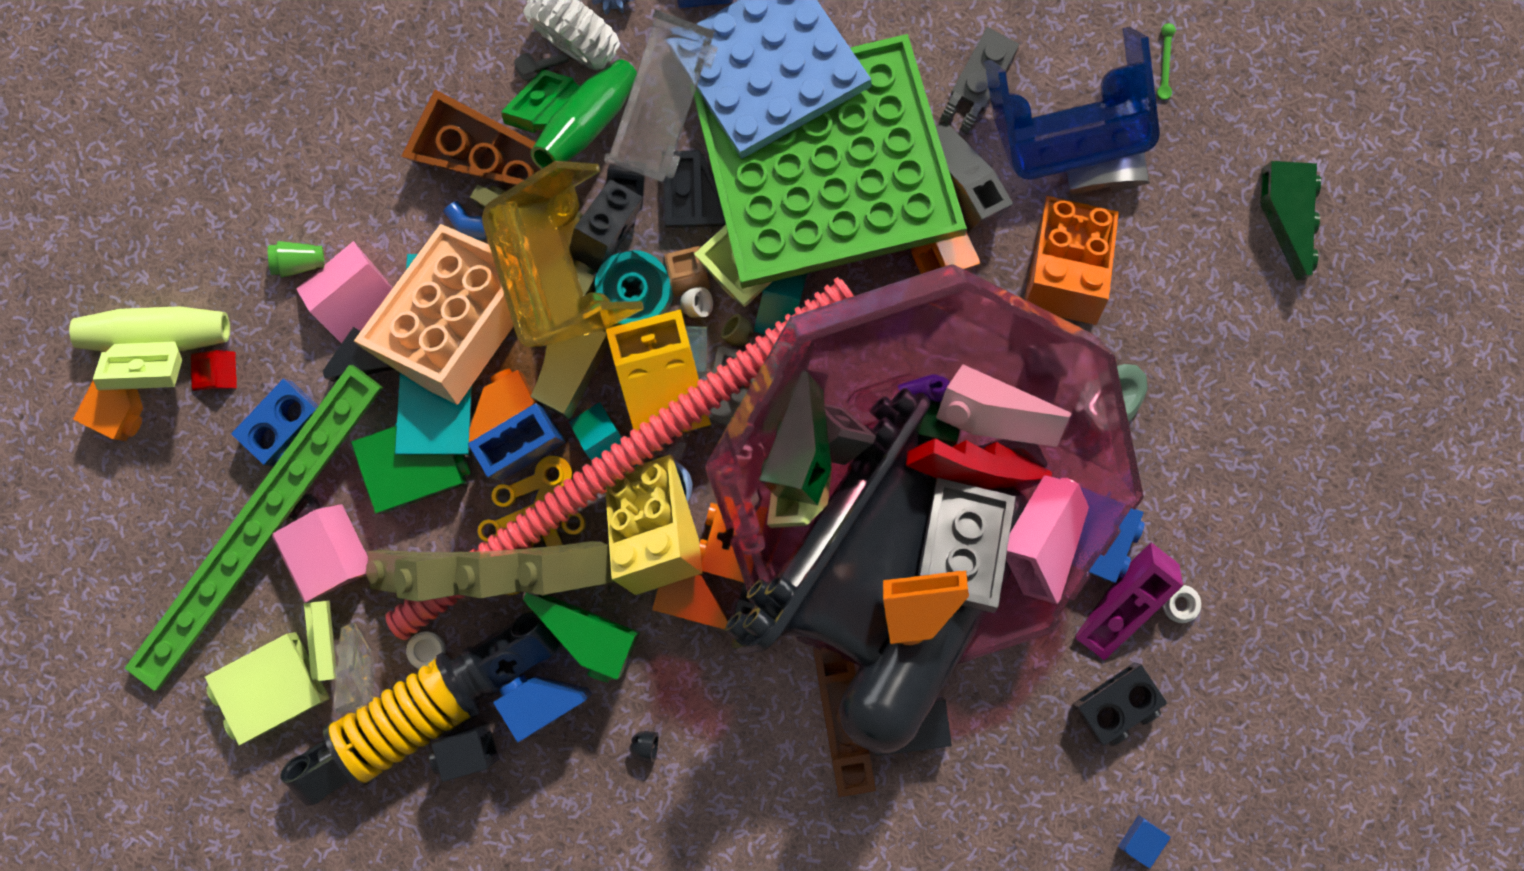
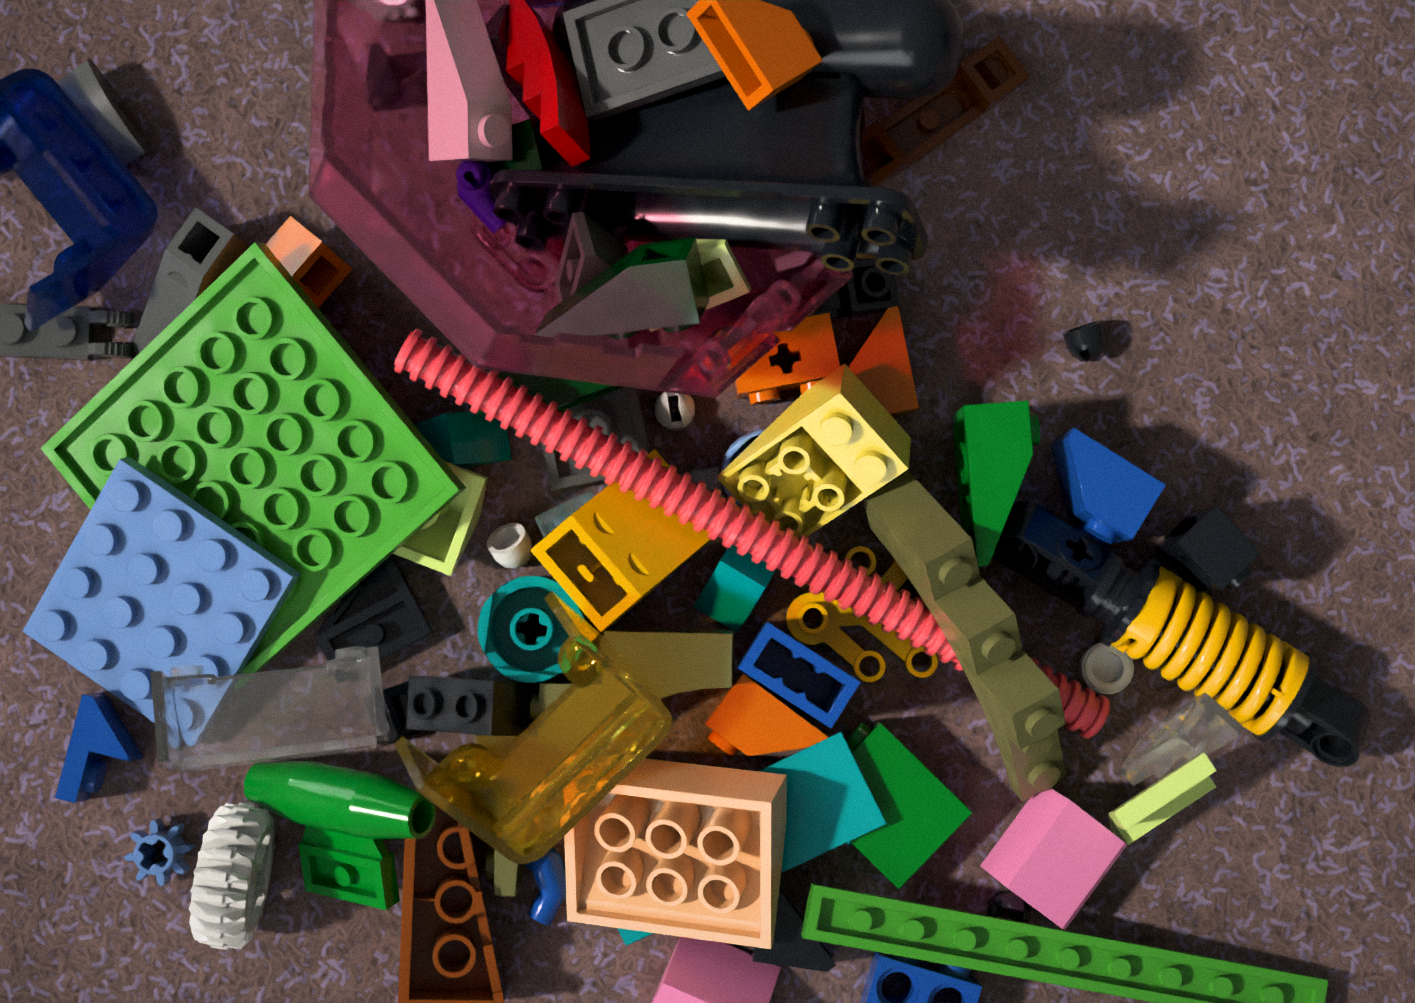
camera: 120 degrees left, 0 degrees up
(265, 688) = (1255, 841): yellowish green brick -> none
(528, 68) = (312, 909): dark grey hand -> none
(686, 271) = (474, 579): medium nougat slope -> none
(737, 330) = (516, 470): olive hinge -> none
(1073, 260) = (232, 107): orange slope -> none

